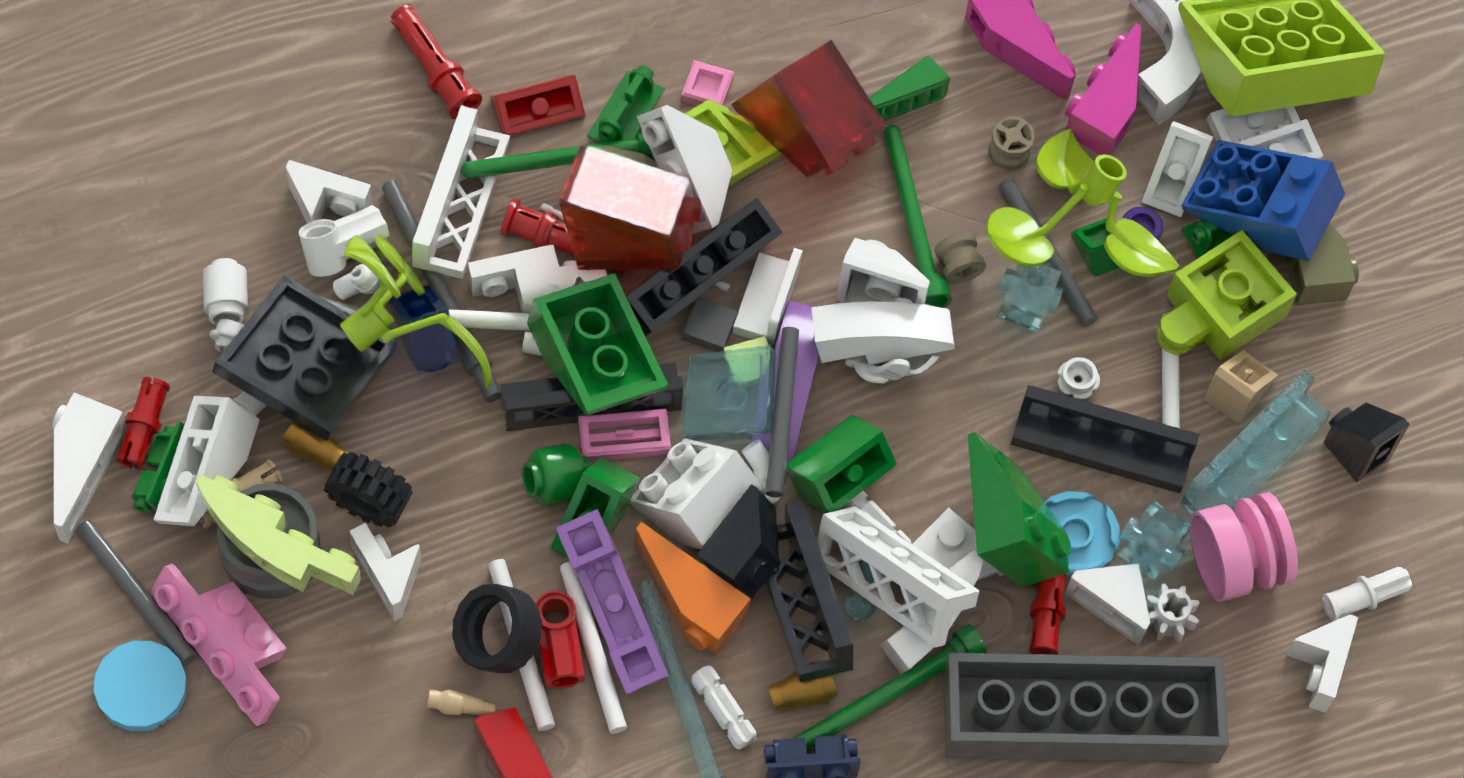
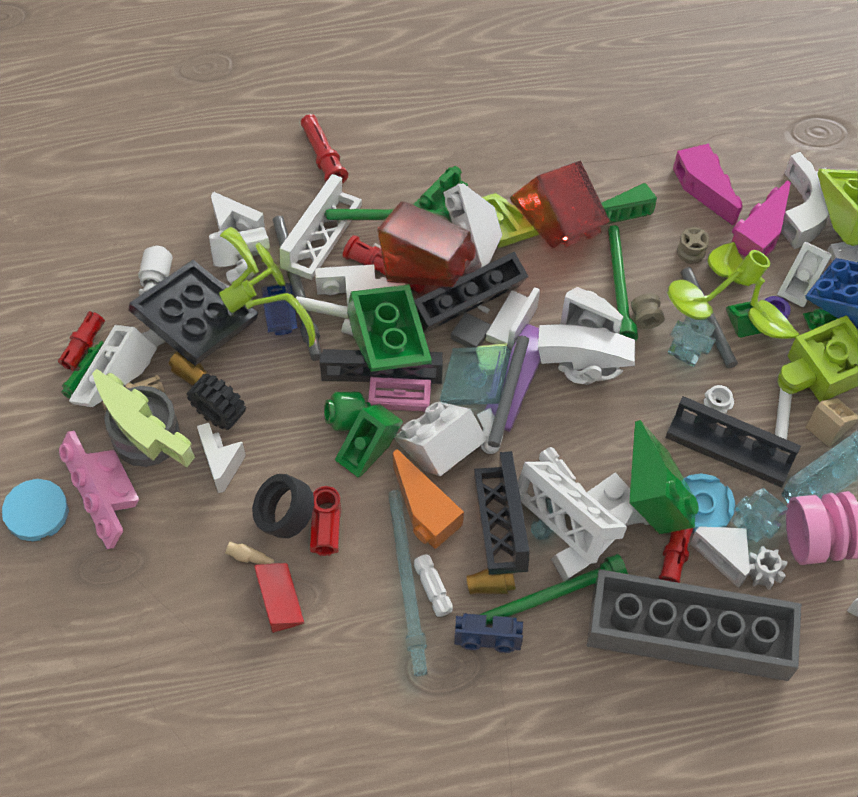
camera: 15 degrees right, 5 degrees down
(83, 448) = (34, 356): white slope -> none
(136, 592) = (49, 449): dark grey bar -> none
(529, 673) = (302, 538): white bar -> none
(538, 105) = (384, 184): red slope -> none
(594, 651) = (350, 533): white bar -> none
(613, 601) = (369, 500): medium lavender slope -> none
(706, 83) = (496, 183): bright pink tile -> none
(745, 544) = (467, 474): black slope -> none
(841, 464) = (543, 431): green brick -> none

